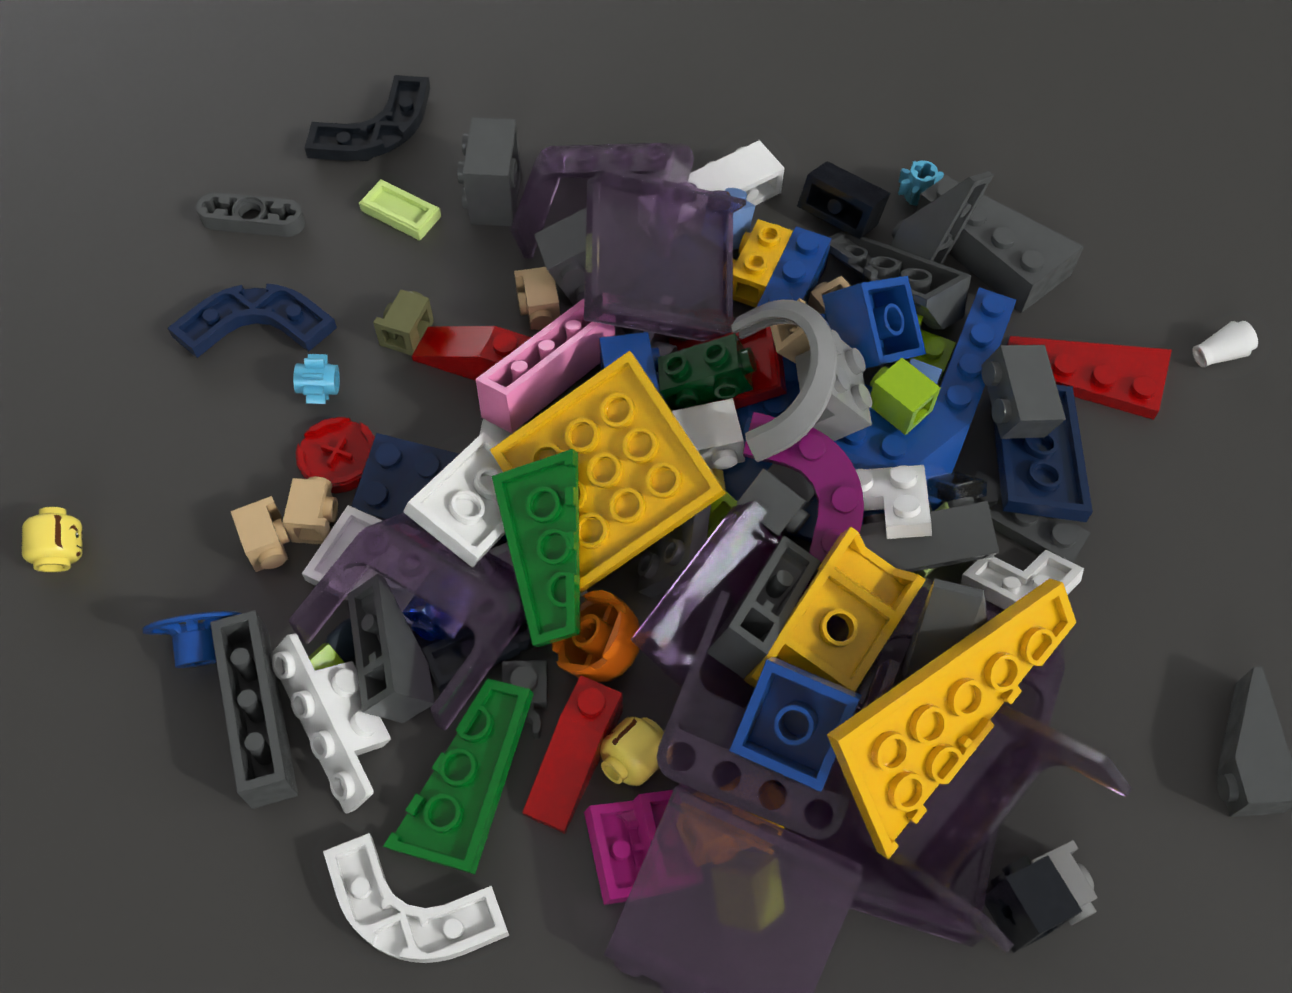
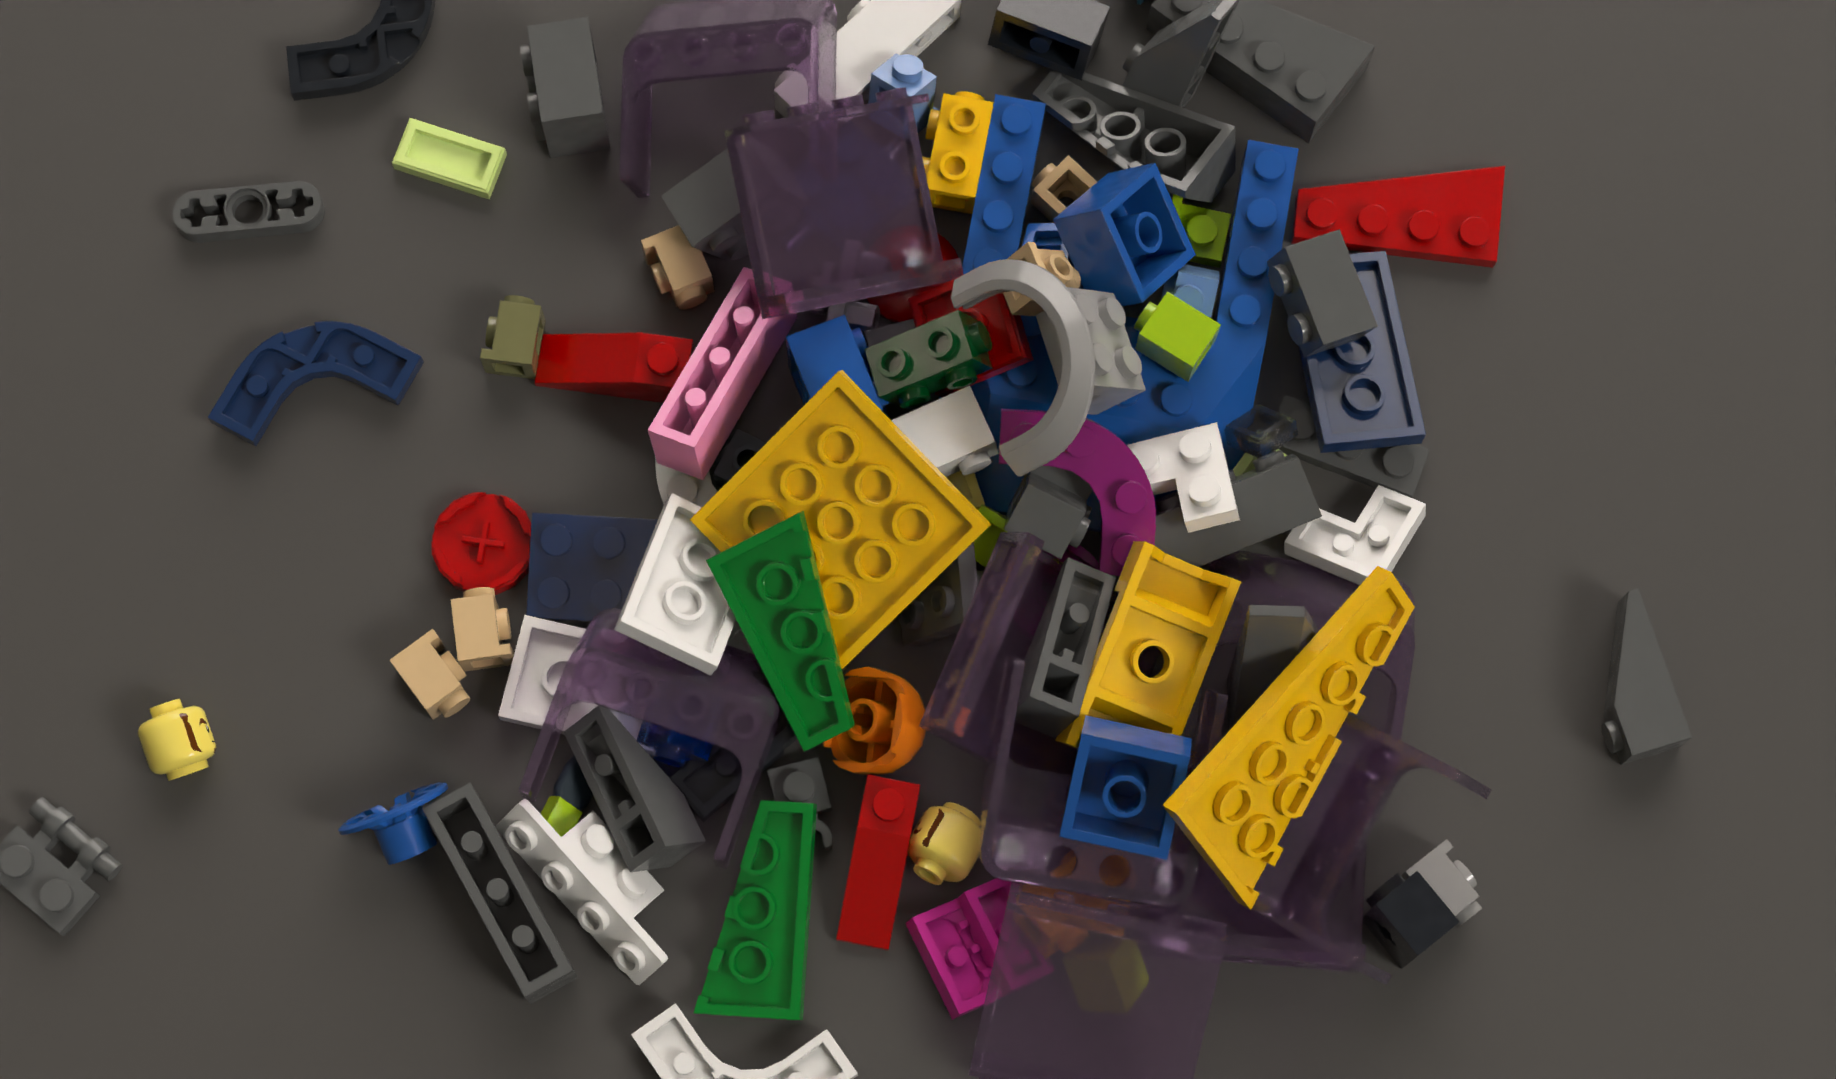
camera: 15 degrees left, 15 degrees up
(316, 379) = (428, 449): medium azure gear -> none
(1228, 343) = (1574, 142): white cone -> none

